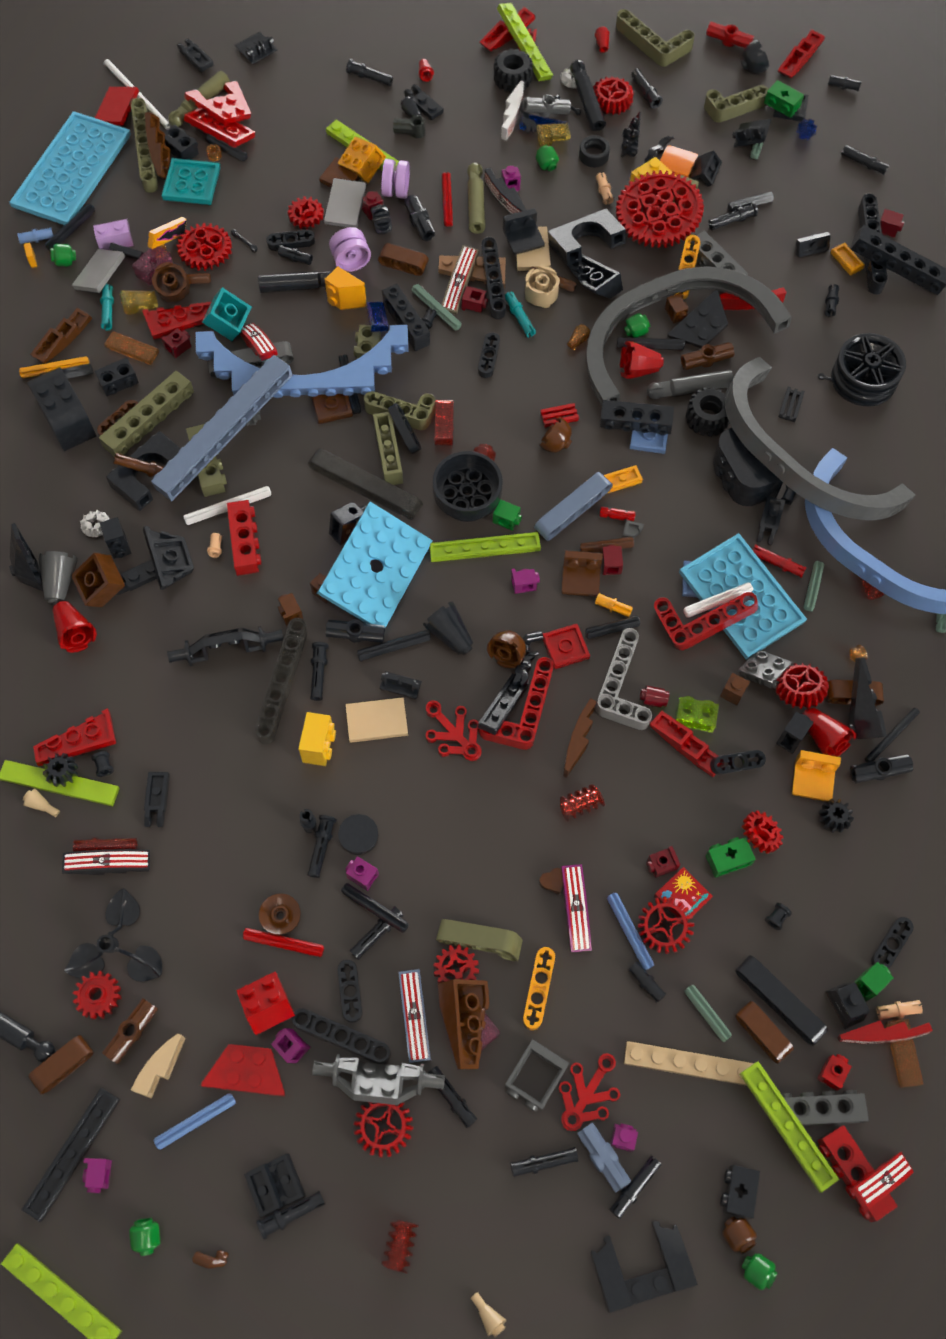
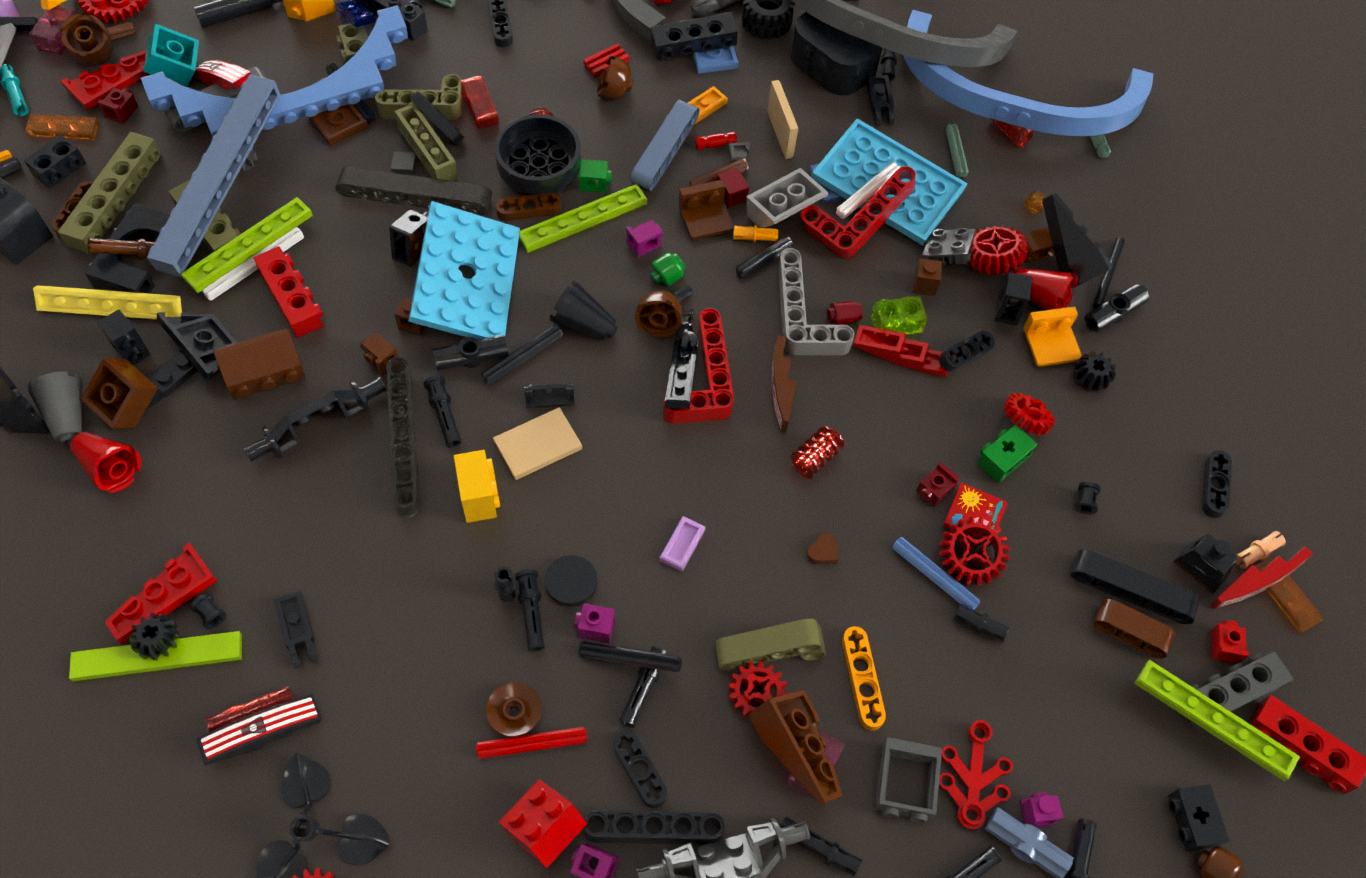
camera: 25 degrees left, 5 degrees down
(35, 800) = (134, 688): tan cone -> none
(87, 527) = (80, 340): white gear -> none
(115, 504) = (105, 302): none -> light yellow tile
(136, 300) = (46, 73): clear yellow plate -> none
(201, 590) = (259, 364): none -> reddish brown slope
(215, 545) = (257, 316): light nougat pin -> none
(227, 490) = (246, 245): none -> lime plate
(367, 456) = (403, 163): none -> dark grey tile
(414, 1015) = (733, 767): slope -> none
(440, 528) = (535, 199): none -> reddish brown beam
(450, 836) = (682, 544): none -> lavender tile
(455, 733) = (635, 427): red plant -> none
(531, 613) = (667, 269): none -> green head
(565, 646) = (722, 292): red tile -> none
(576, 908) = (866, 570): slope -> none
(646, 584) = (783, 198): none -> light grey slope
(676, 514) = (782, 119): none -> tan tile
(685, 1063) = (1066, 697): tan plate -> none
(708, 1013) = (1063, 632): sand green axle -> none
(779, 561) = (912, 136): red pin -> none
(873, 980) = (1225, 523): green brick -> none
(882, 1181) = (1345, 739): slope -> none

